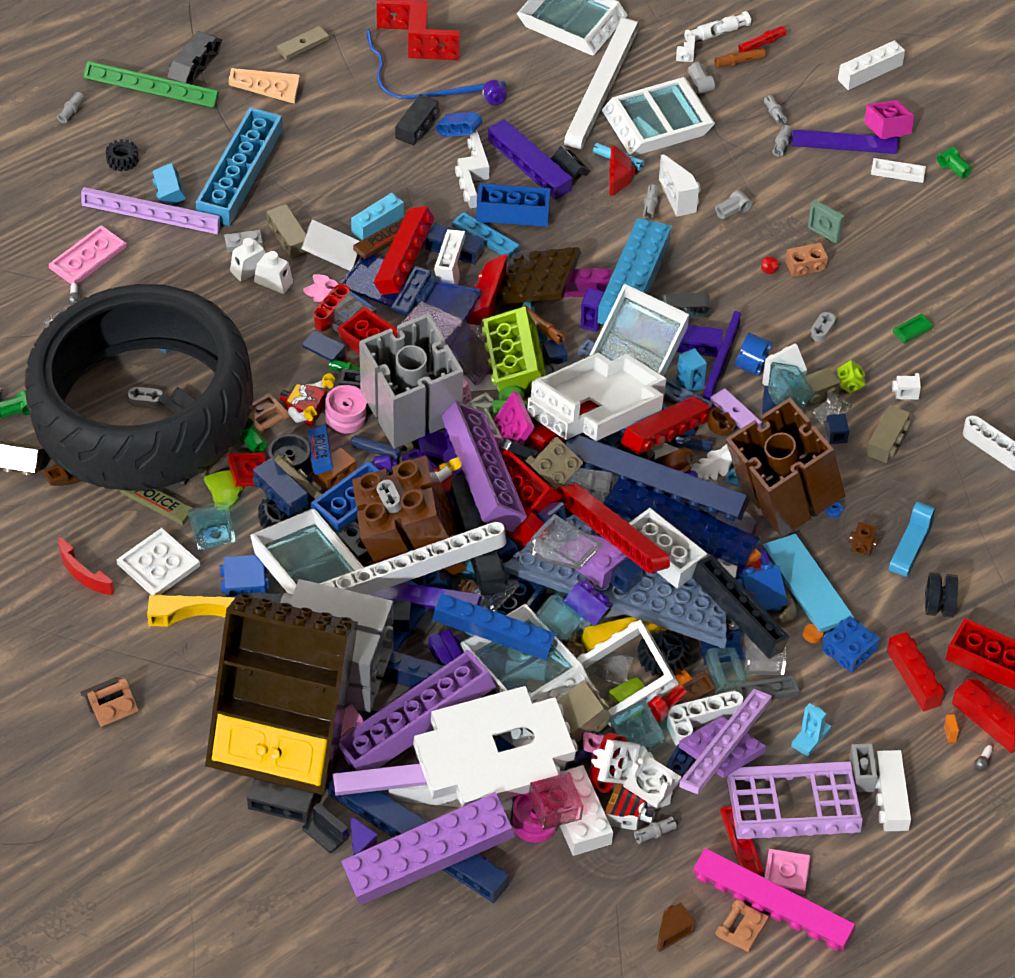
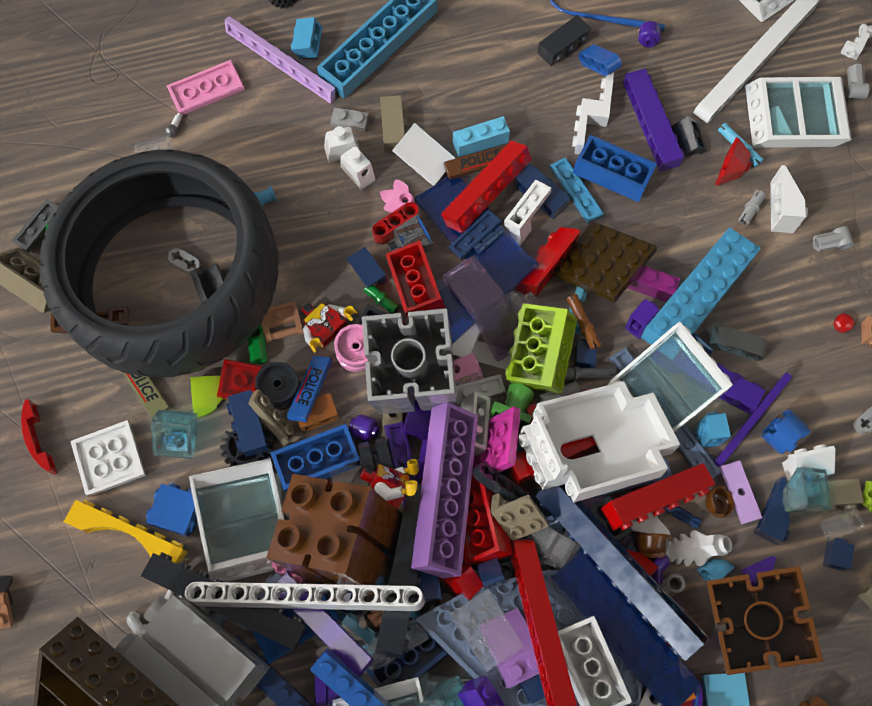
camera: 25 degrees right, 20 degrees up
(375, 447) = (362, 398): dark blue axle -> none
(387, 497) = (312, 523): light grey beam -> none

